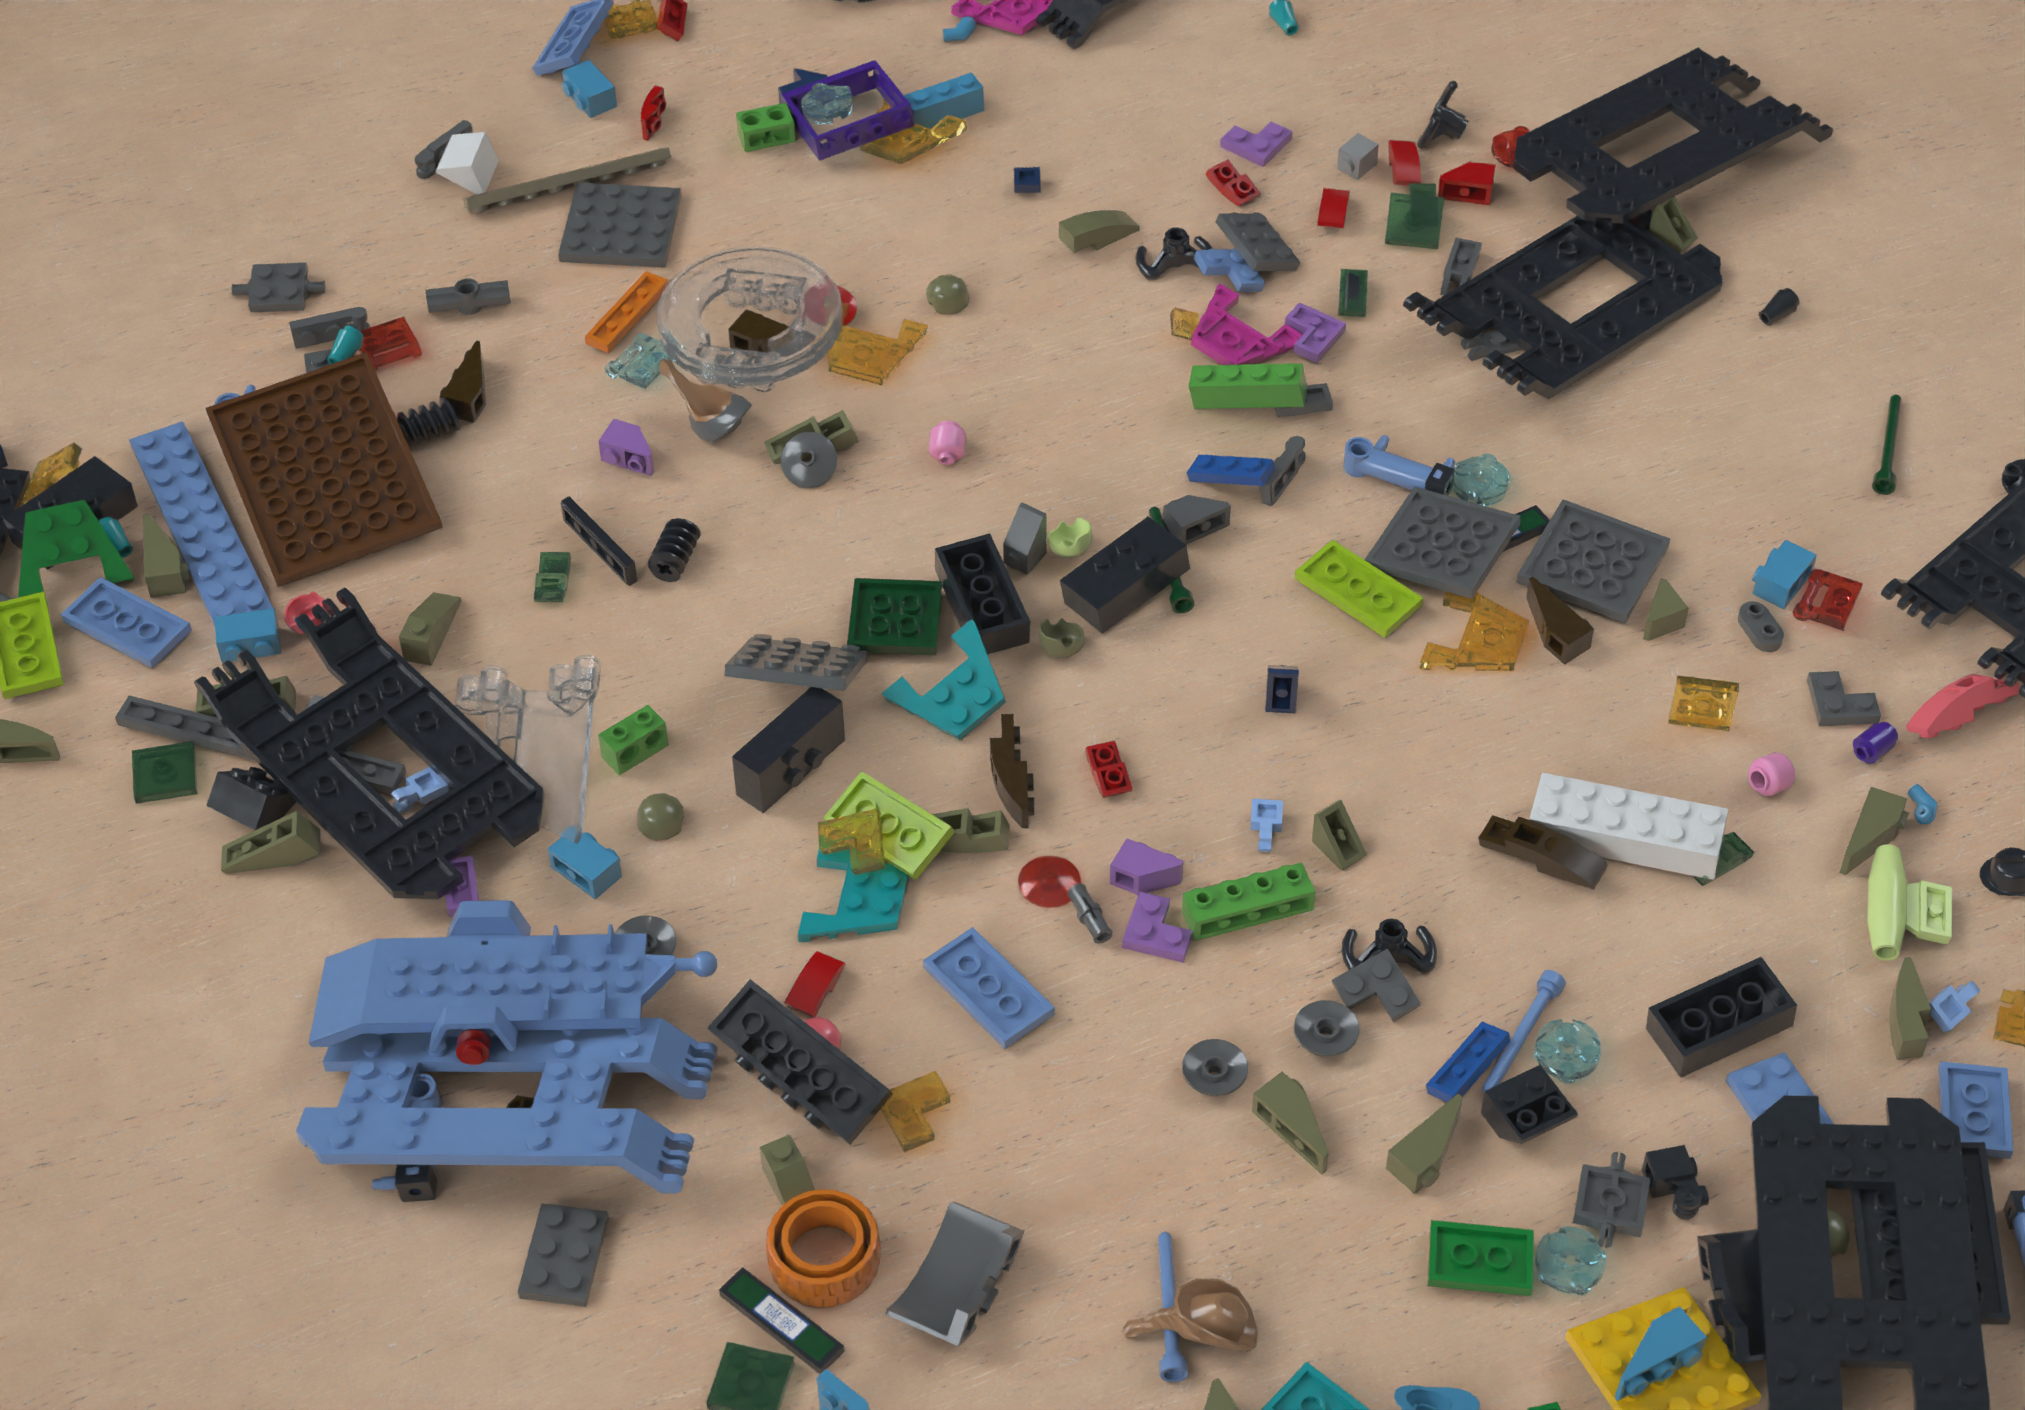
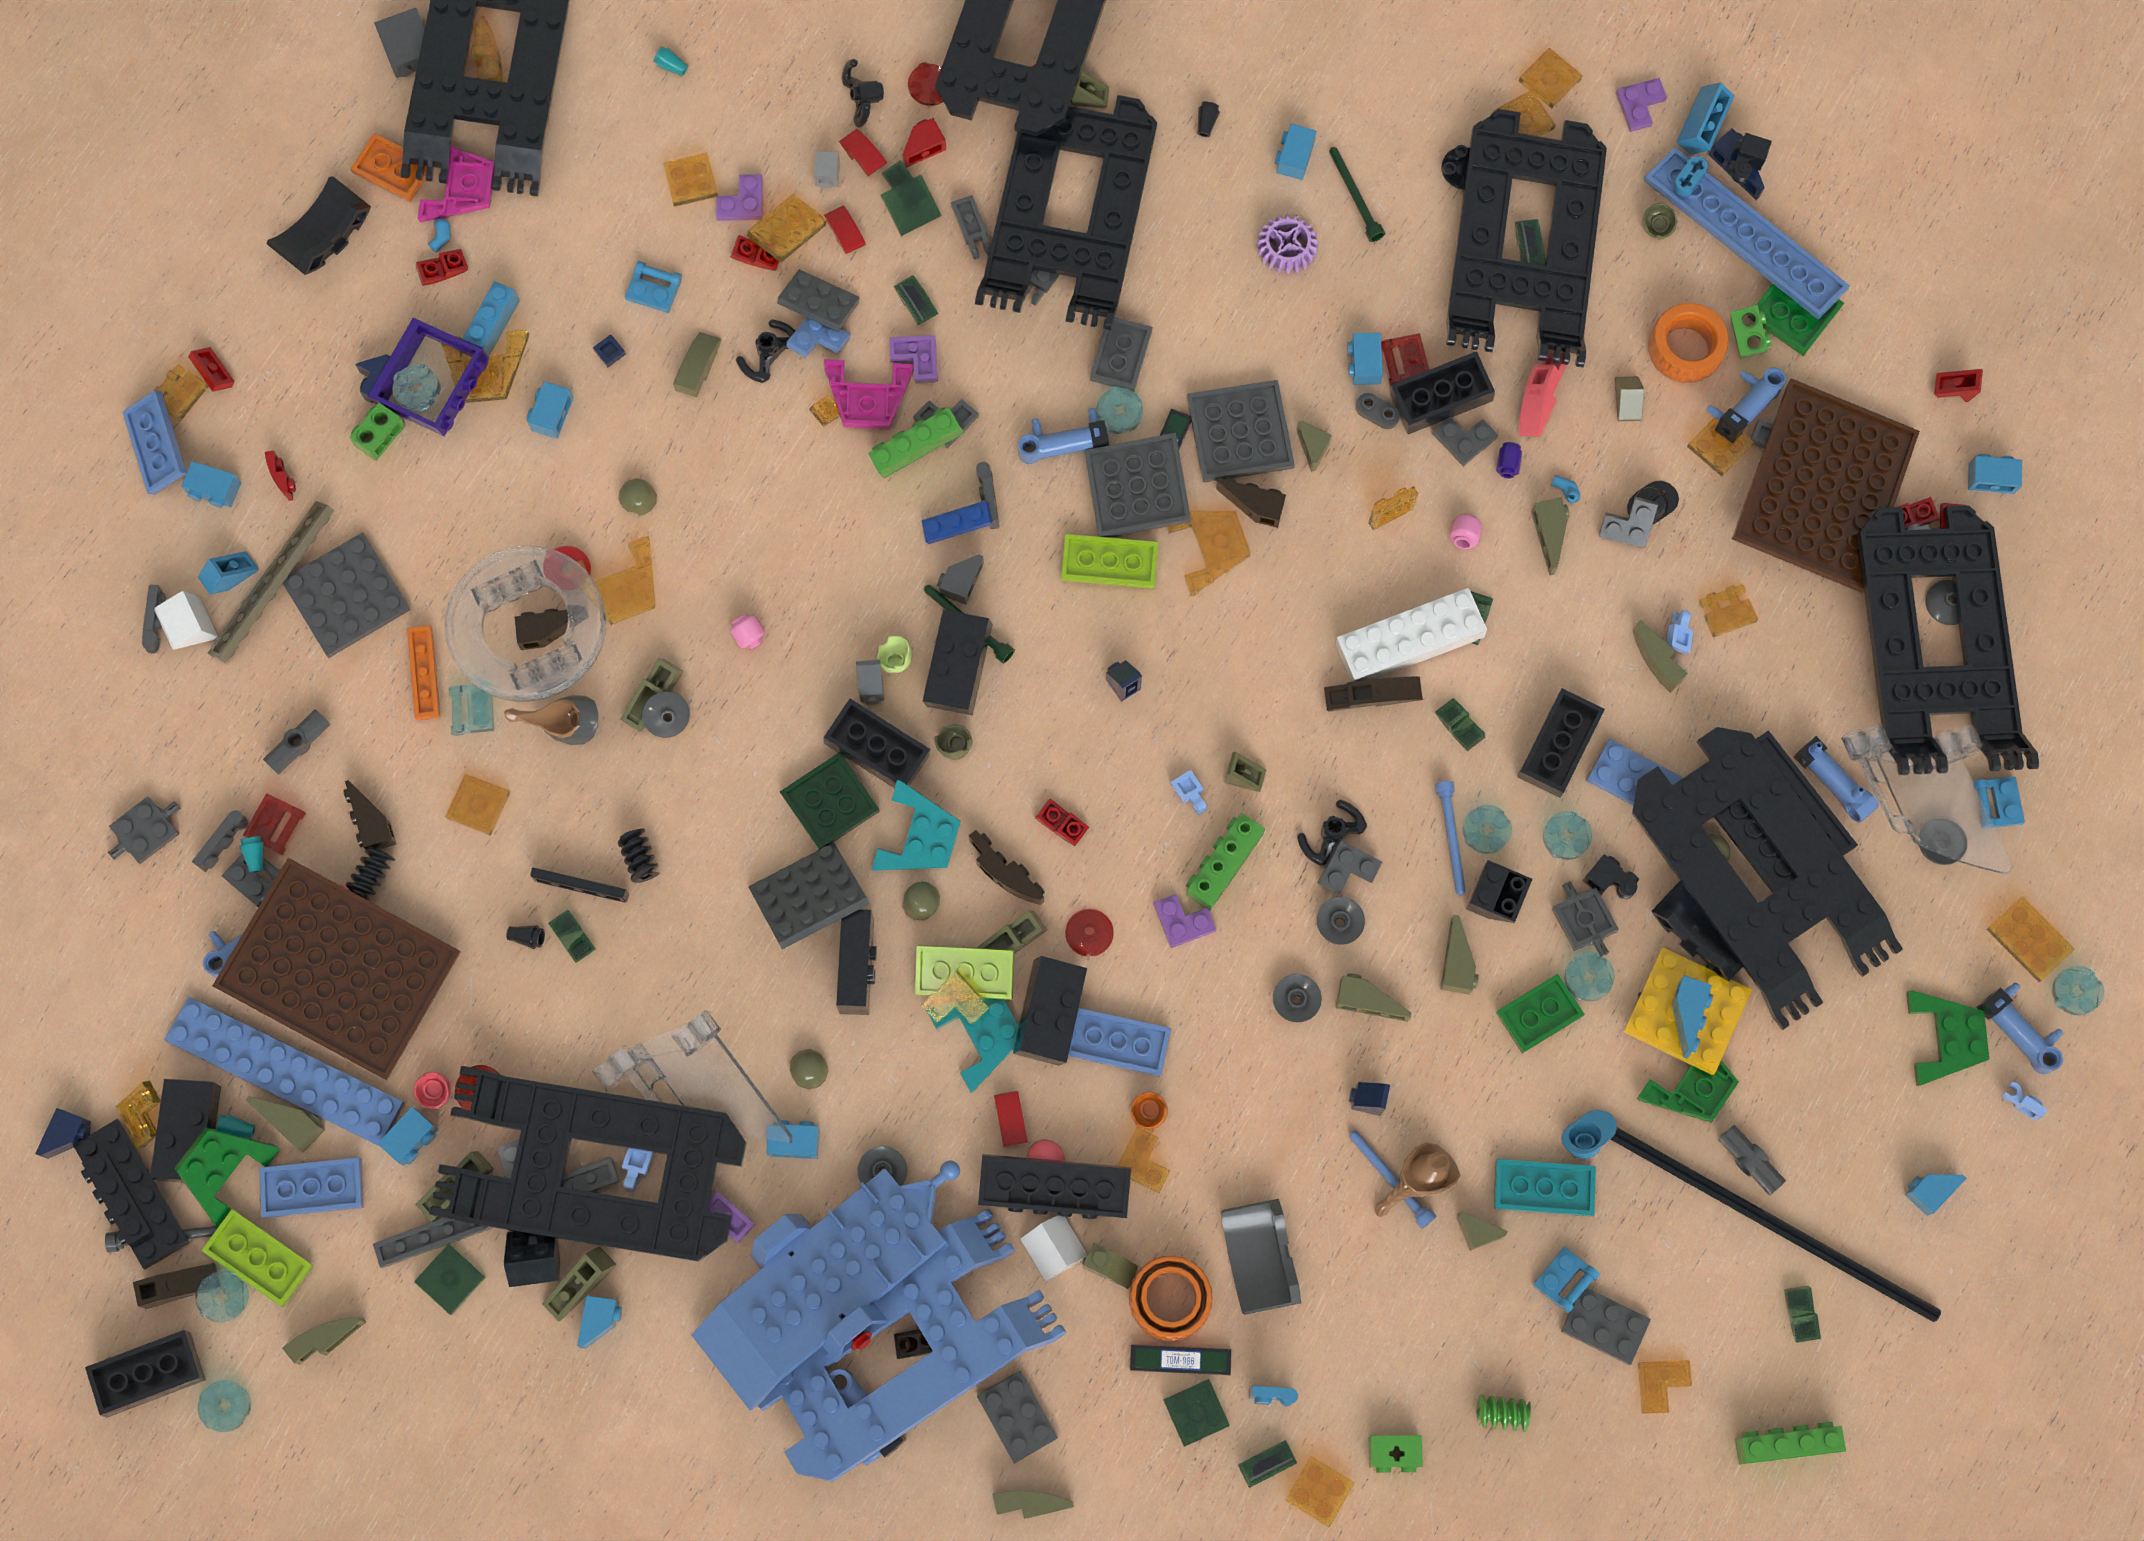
camera: 40 degrees left, 25 degrees up
(254, 888) = (598, 1319): none -> dark azure slope
(427, 628) = (524, 1035): olive slope -> none
(496, 1338) = (1030, 1502): none -> olive slope
(514, 553) = (528, 936): none -> black cone
(537, 151) = (226, 572): none -> dark azure slope
(571, 433) = (477, 804): none -> clear yellow plate
(626, 447) = (529, 792): medium lavender slope -> none
(633, 739) = (744, 1026): bright green brick -> none
(748, 1121) = (1053, 1247): none -> white slope
(905, 747) = (921, 900): none -> olive hair
(931, 191) = (549, 409): none -> dark azure brick
(941, 909) = (1050, 1010): none -> black brick
(945, 54) = (444, 267): none -> red slope
(962, 1066) = (1149, 1110): none -> orange hair
(1089, 913) = (1136, 941): dark grey pin -> none
(1107, 164) = (650, 293): none -> dark azure plate
(1144, 869) = (1143, 885): medium lavender slope -> none
(1213, 1207) = (1369, 1097): none -> dark blue slope
(1222, 102) = (690, 179): none -> clear yellow plate
(1277, 174) = (786, 228): none -> clear yellow plate
(1468, 1062) = (1438, 883): blue plate -> none
(1523, 435) = (1121, 354): none -> dark grey plate
(1619, 940) = (1459, 724): none -> clear green slope
(1656, 1128) = (1574, 824): none -> clear light blue plate
(1778, 441) = (1282, 233): none -> lavender gear
(1845, 641) = (1442, 392): none -> black brick
(1852, 376) = (1296, 151): none -> dark azure brick
(1896, 906) = (1607, 579): yellowish green plate -> none
(1975, 879) = (1632, 529): none -> plate
(1978, 1104) = (1739, 699): medium blue plate -> none

